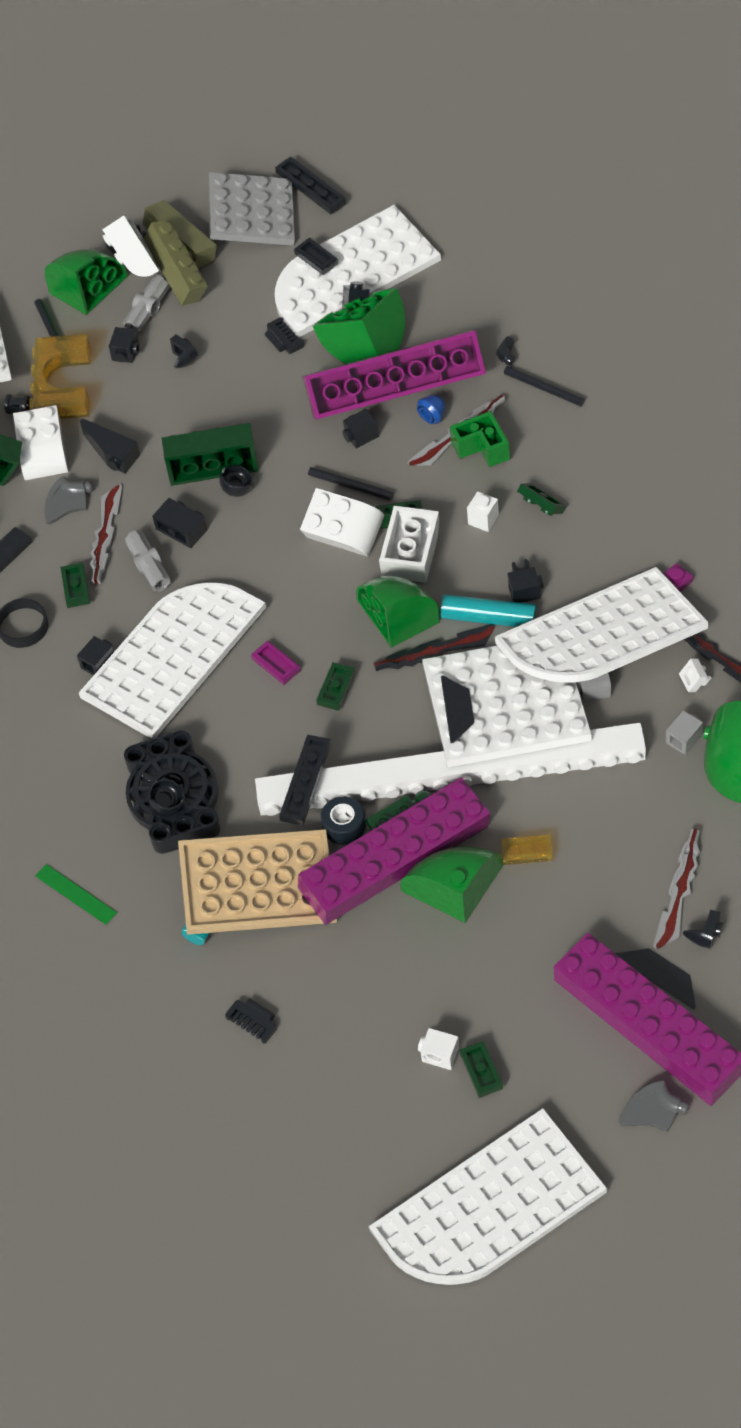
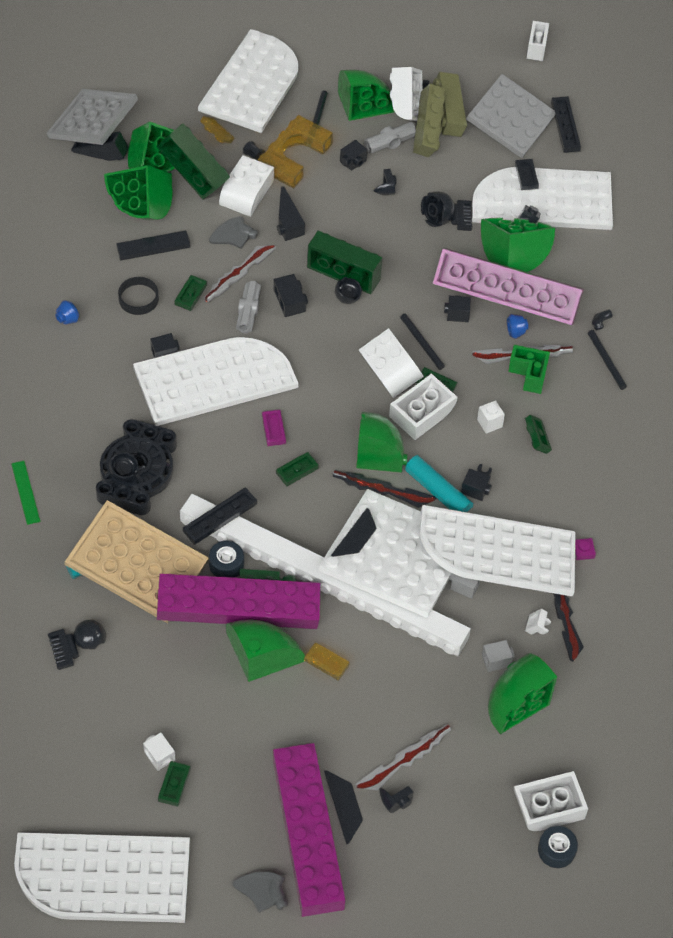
camera: 25 degrees right, 0 degrees up
(214, 119) = (537, 40): none -> white brick
(256, 344) = (437, 208): none -> black cylinder
(268, 986) = (89, 634): none -> black hair

